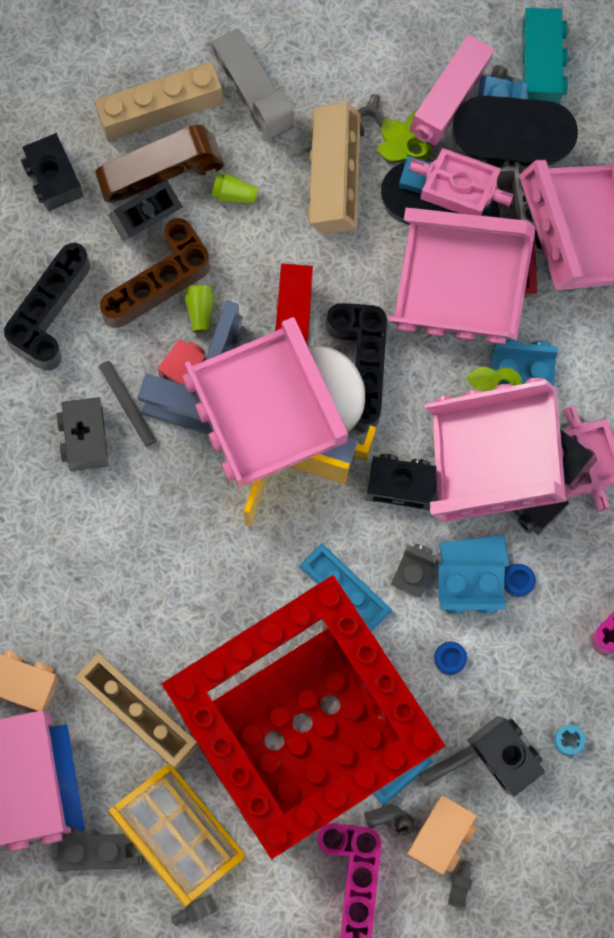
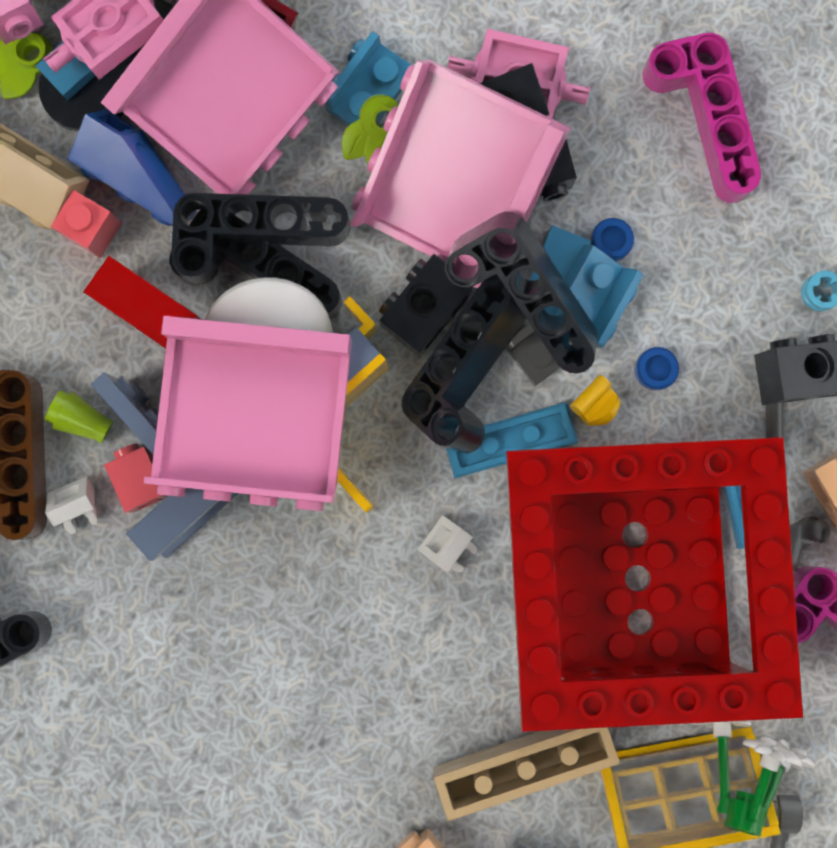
camera: 55 degrees left, 10 degrees up
(81, 415) = (138, 622): dark grey brick -> none
(127, 403) = (145, 568): dark grey bar -> none
(144, 333) = (71, 502): none -> white tile
(187, 868) = (749, 811): none -> green plant
(252, 583) = (446, 544): none -> white tile
(326, 243) = (86, 224): none -> coral brick
(376, 524) = (499, 319): none -> black beam
(380, 246) = (124, 159): none -> blue slope
(385, 348) = (260, 230): none -> black beam
(402, 629) = (597, 403): none -> yellow plate
(425, 584) = (529, 295): none -> black beam

